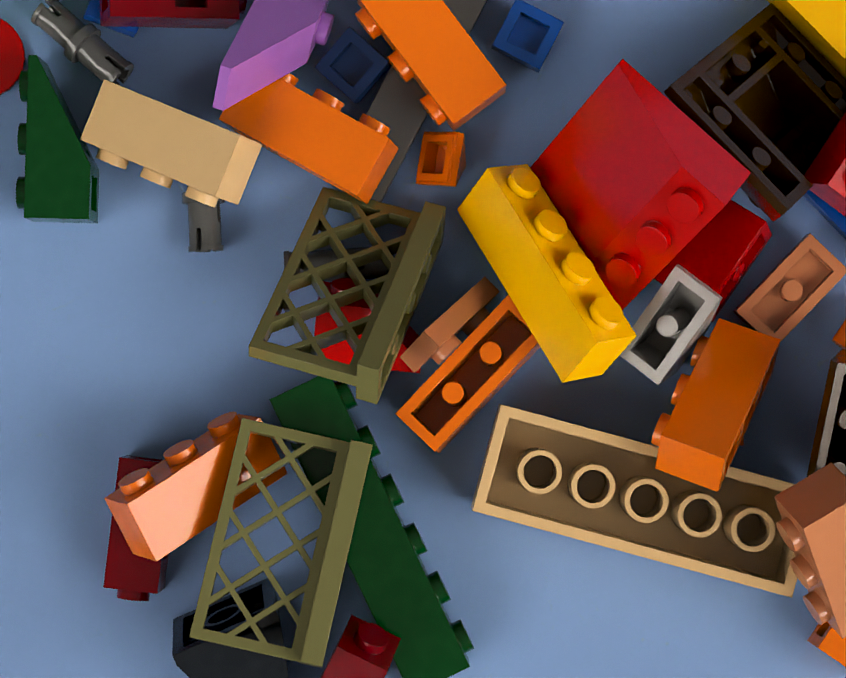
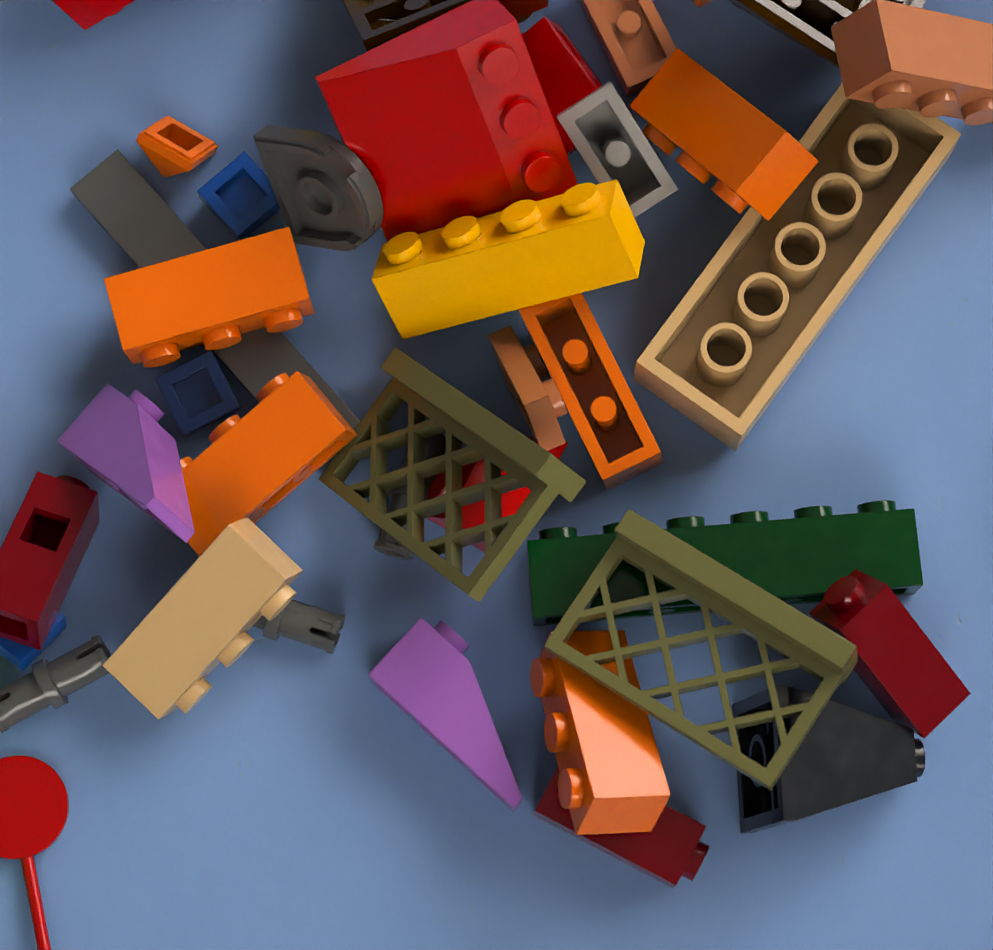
camera: 65 degrees left, 10 degrees down
(59, 168) = (174, 756): dark green slope -> none
(185, 352) = (441, 694): none -> medium lavender slope
(441, 159) = (338, 339): orange slope -> none
(549, 95) = (320, 188): none -> dark grey tile

